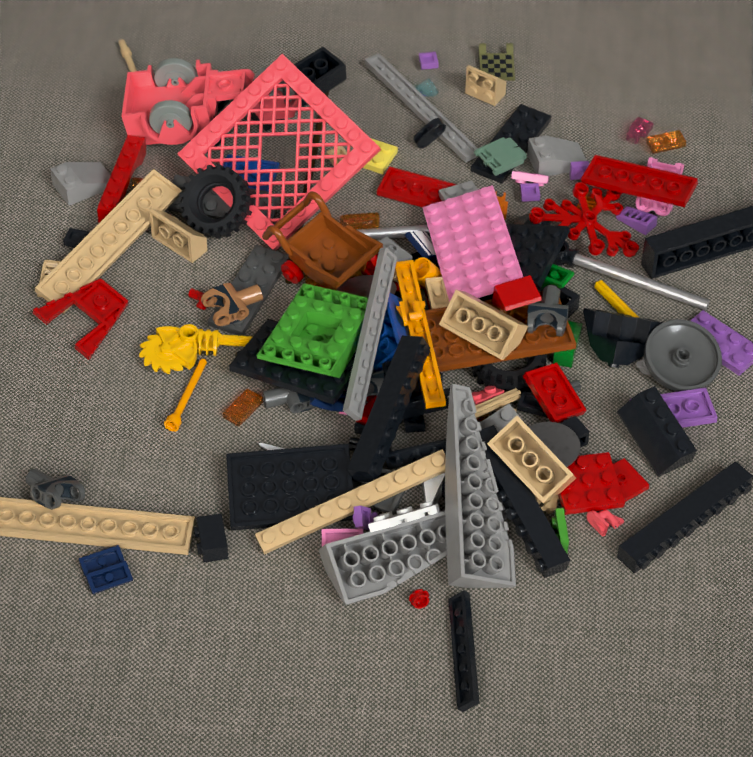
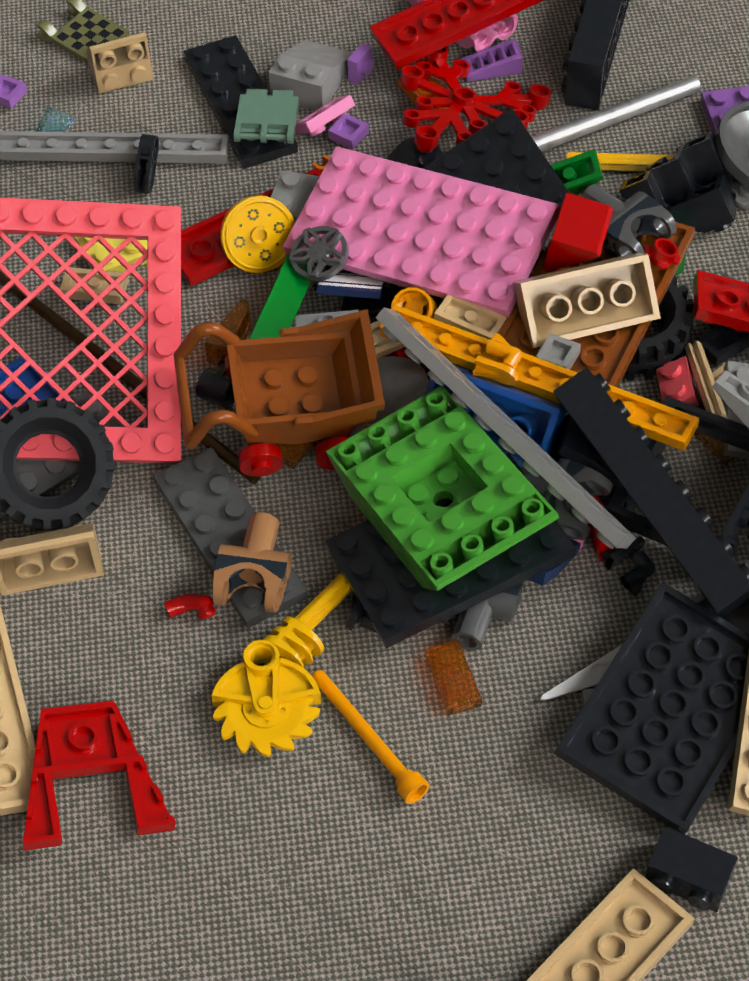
camera: 50 degrees left, 5 degrees up
(389, 225) = (281, 302): none -> green slope
(420, 191) = (256, 233): none -> yellow shield
(424, 219) = (319, 253): none -> flat silver wheel
(440, 333) = (559, 351): none -> light grey plate
(544, 334) = (663, 253): none -> red plate

